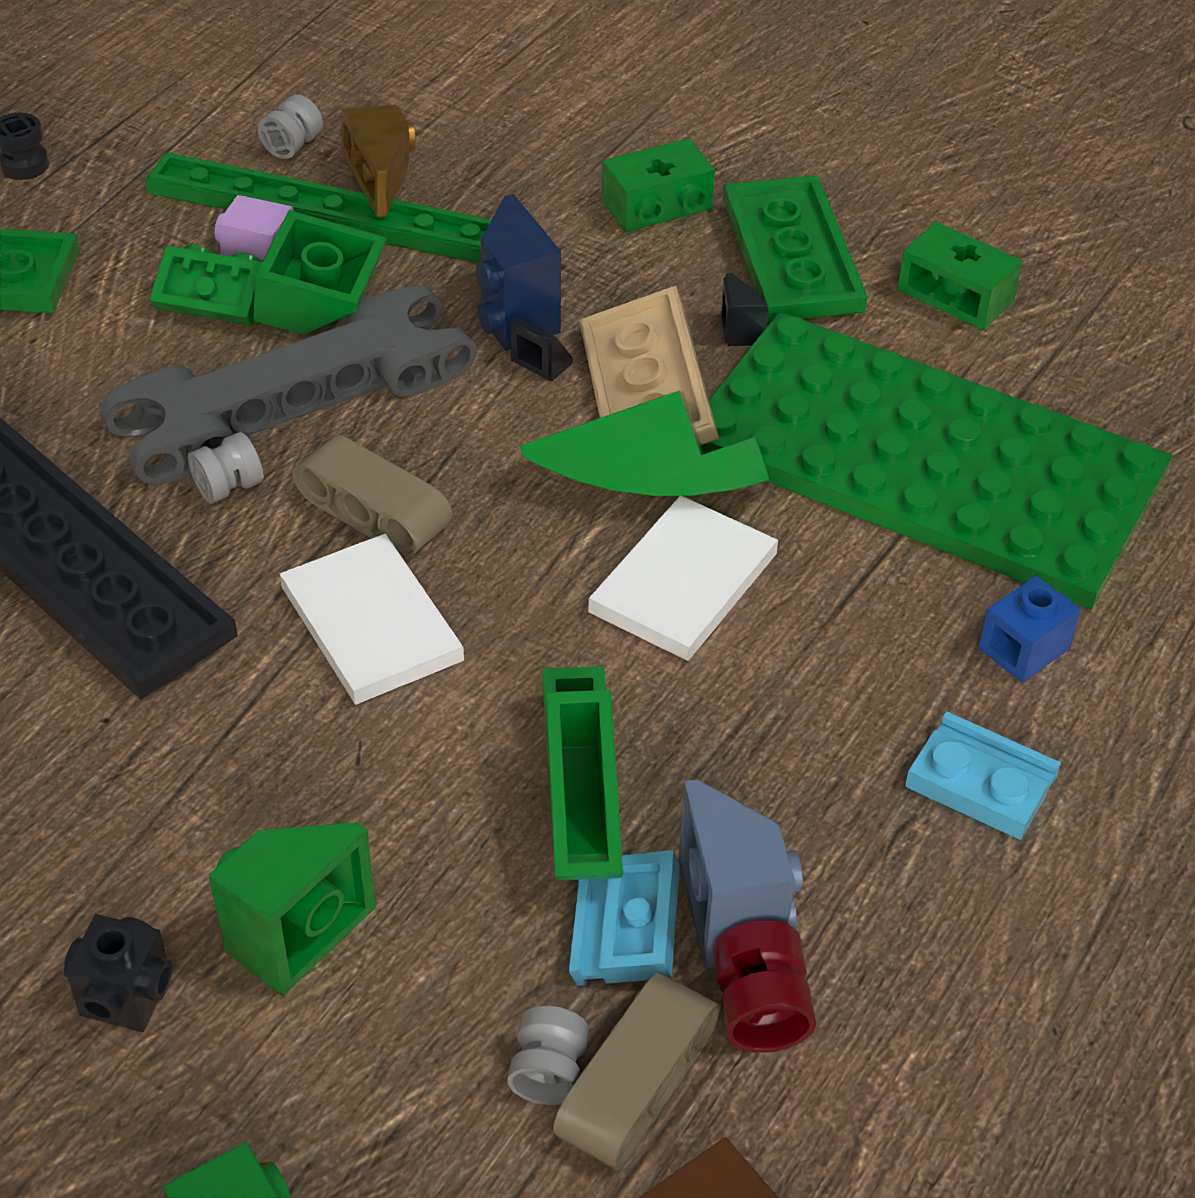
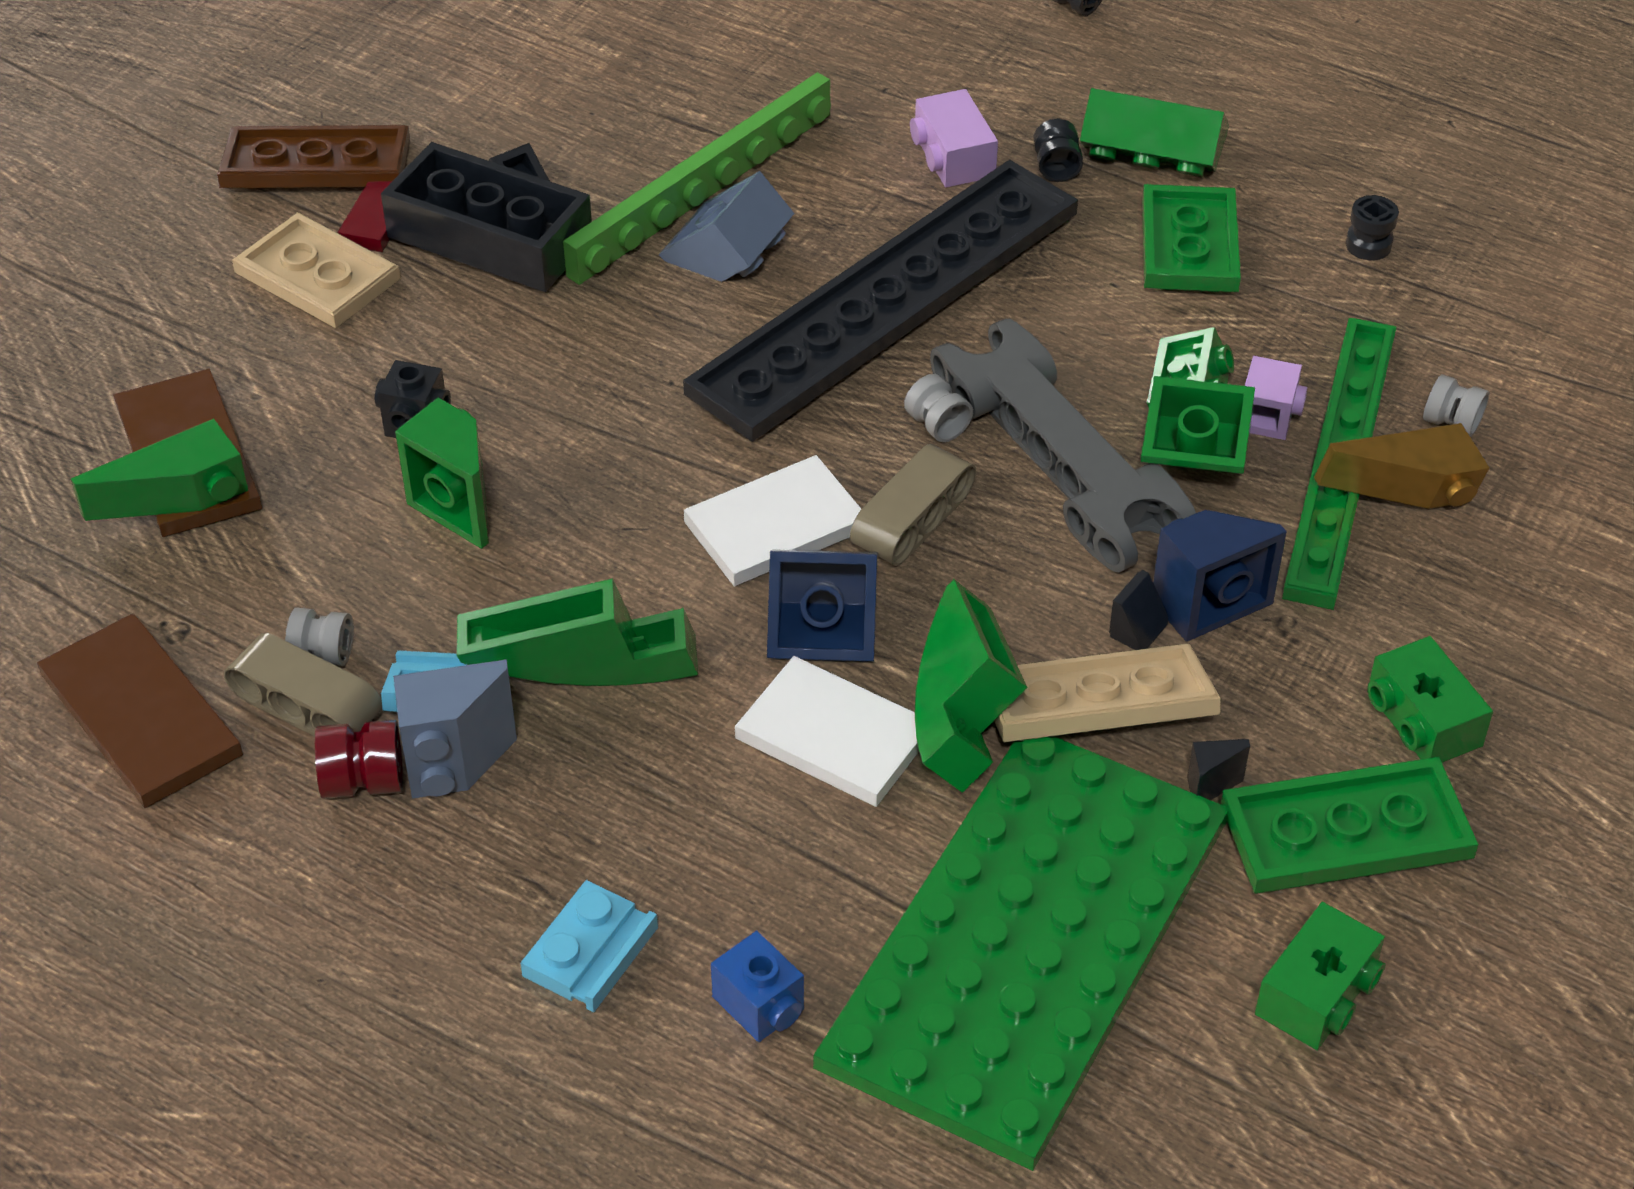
camera: 90 degrees right, 0 degrees up
(514, 568) = (822, 605): none -> dark blue slope

